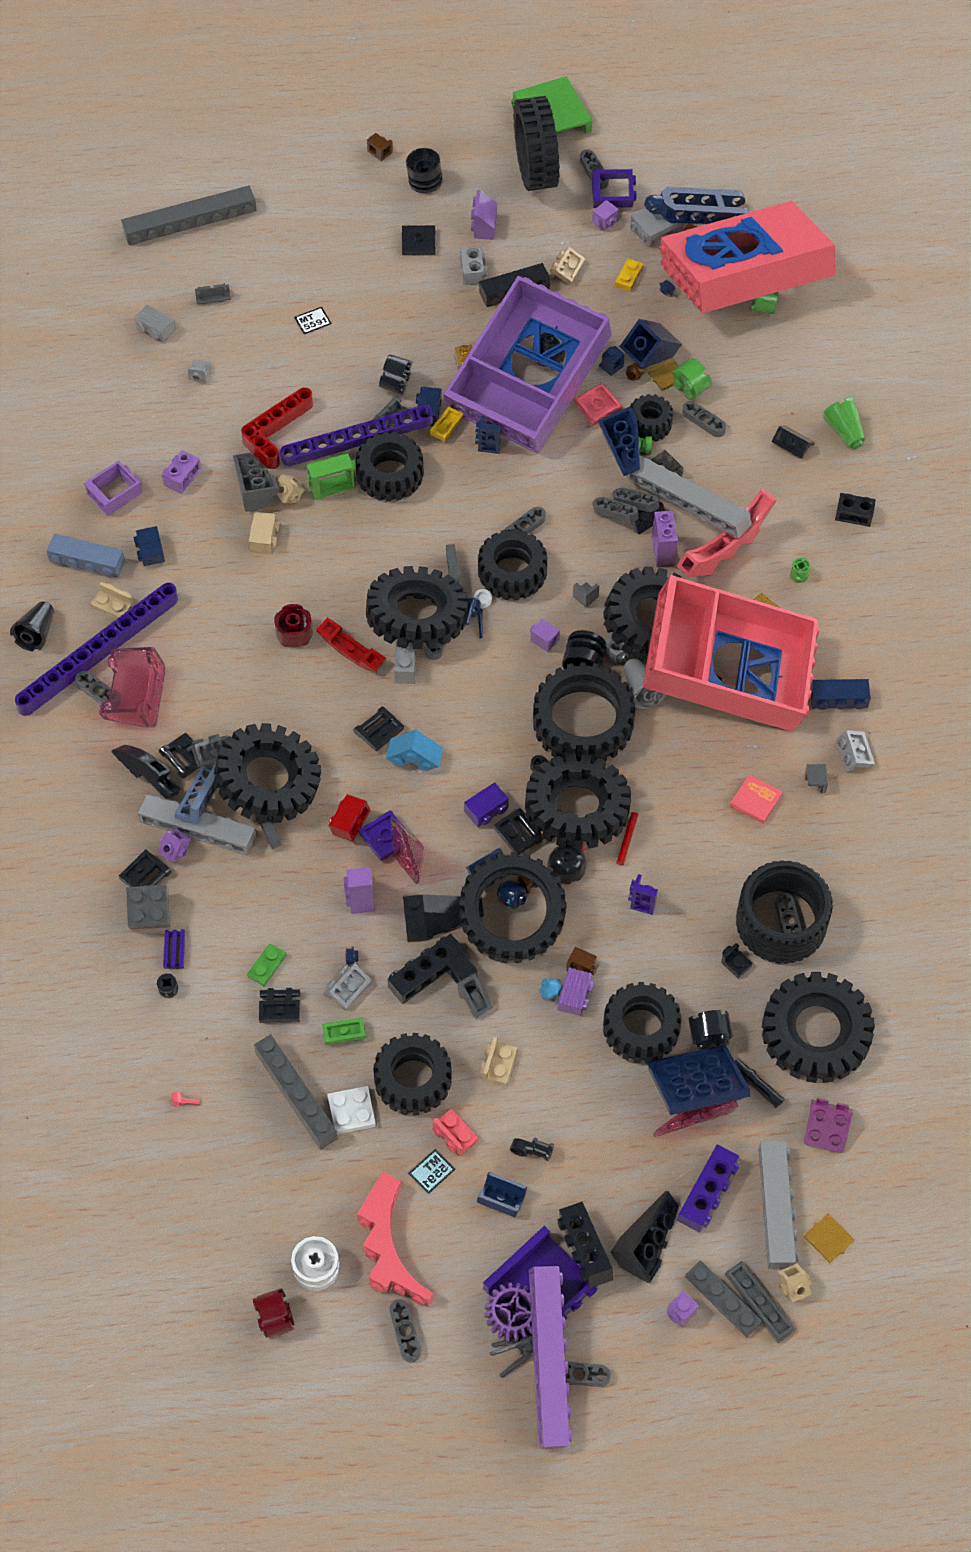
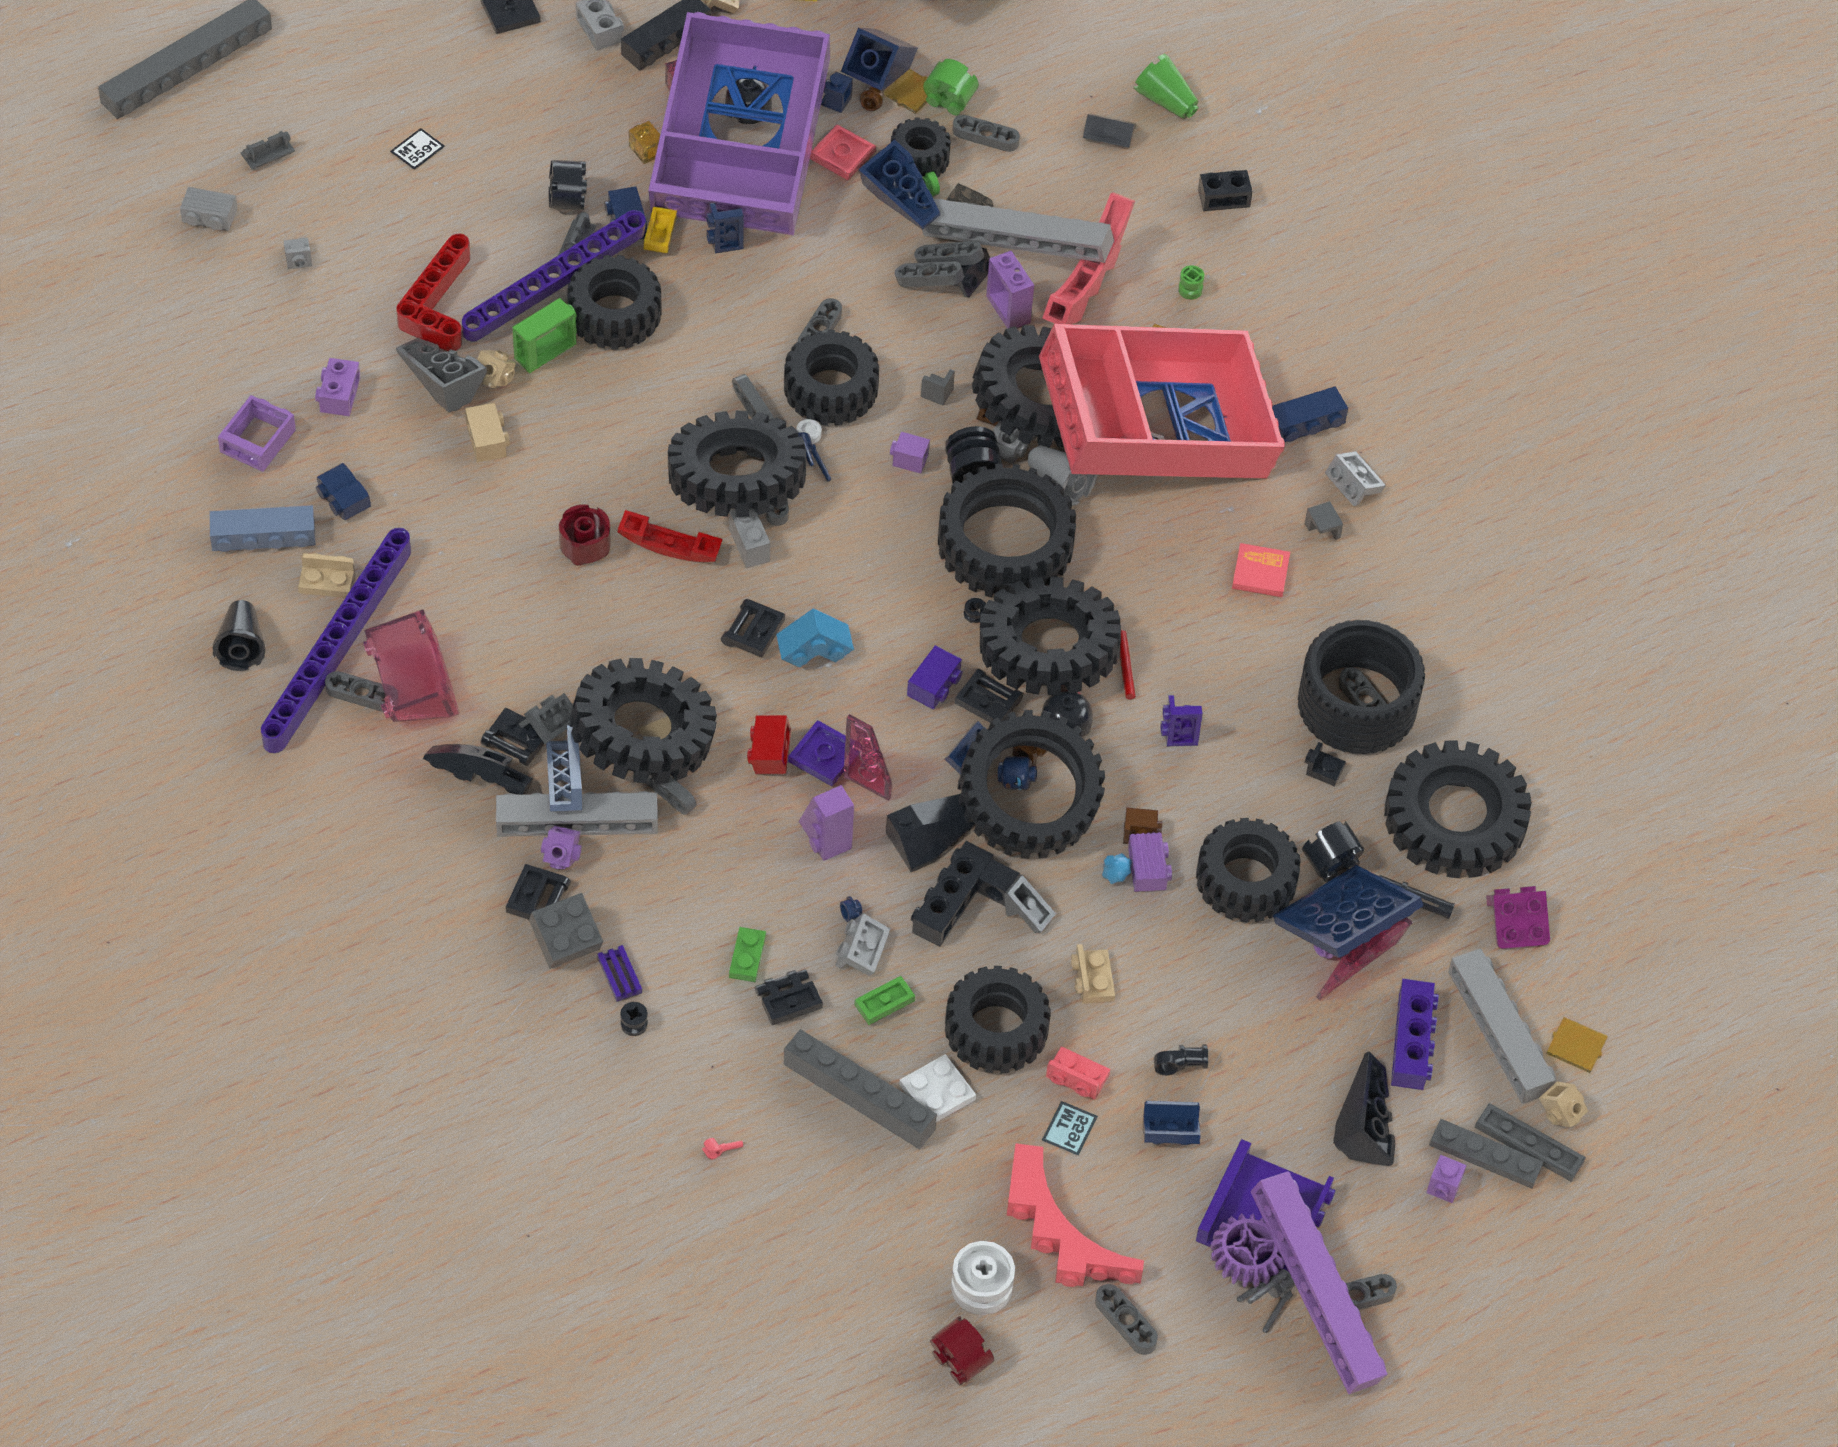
camera: 25 degrees left, 5 degrees down
(577, 1217) = (1301, 1143): black brick -> none

